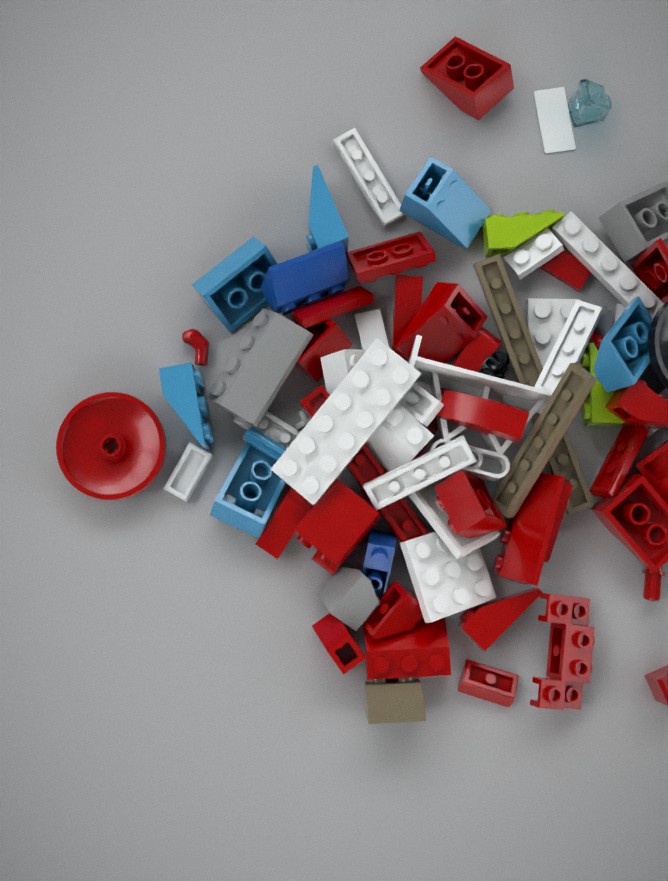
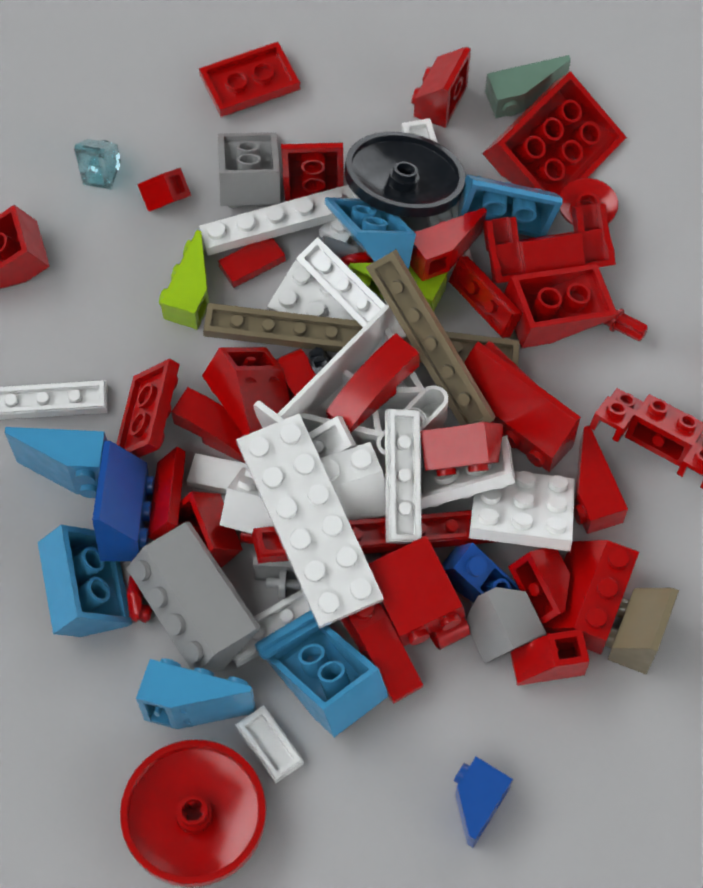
camera: 60 degrees left, 20 degrees down
(199, 343) = (123, 661): red arm -> none
(214, 635) = (479, 796): none -> blue slope
(241, 329) = (136, 609): none -> red arm
(445, 204) = (119, 336): dark azure slope -> none
(488, 683) = (665, 530): red slope -> none
(534, 253) = (223, 277): white plate -> none
(554, 120) = (92, 202): white sticker -> none
(591, 167) = (164, 189): none -> red panel

